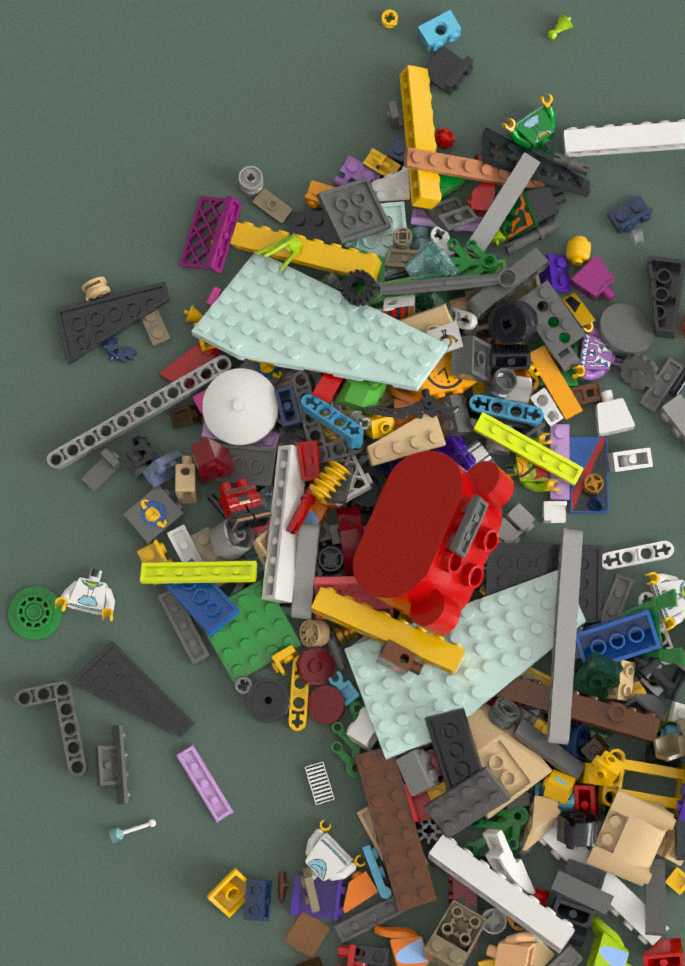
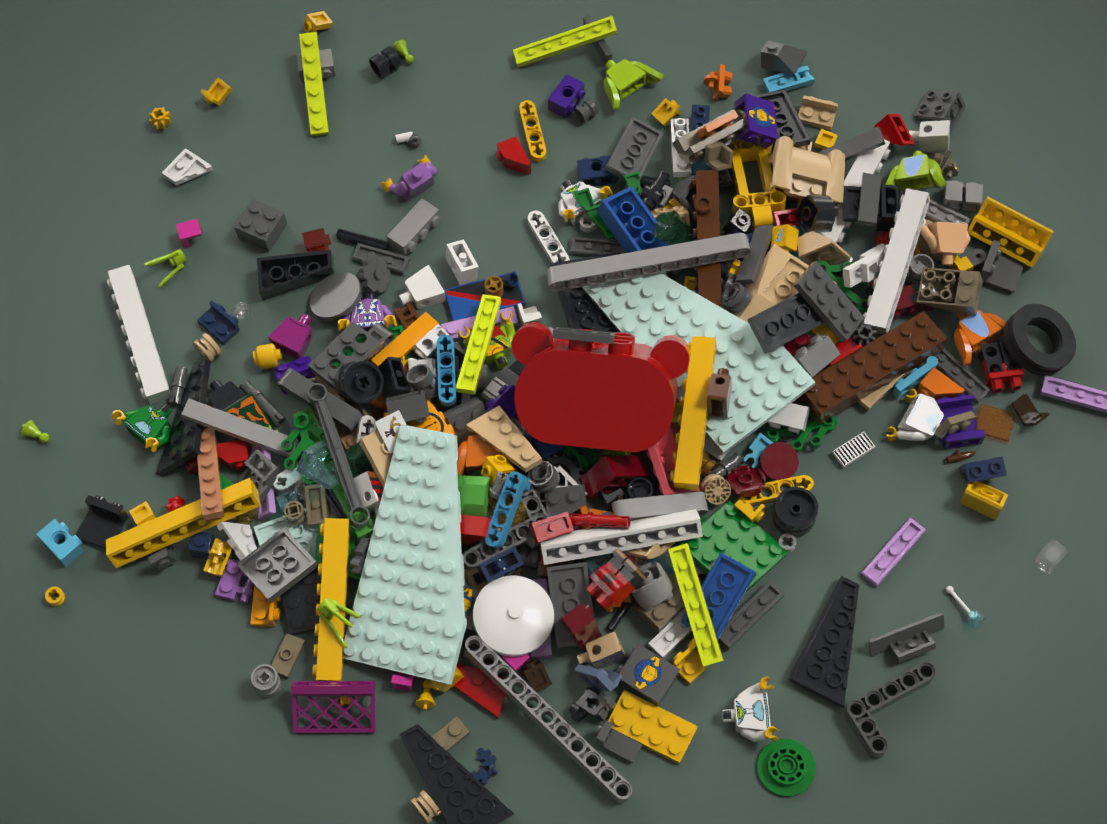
camera: 105 degrees left, 15 degrees down
(107, 505) = (652, 726): none -> yellow plate
(152, 931) = (1051, 556): none -> clear brick
(328, 481) = (568, 500): yellow piece -> none
(357, 473) = (544, 477): none -> dark grey wheel
(370, 288) = (353, 516): black tyre -> none
(425, 405) = (467, 430): black piece -> none
(444, 107) = (142, 514): none -> yellow bracket
(578, 309) = (328, 336): yellow sticker -> none
(603, 197) = (207, 347): none -> tan wheel
(606, 768) = (756, 200): yellow brick -> none

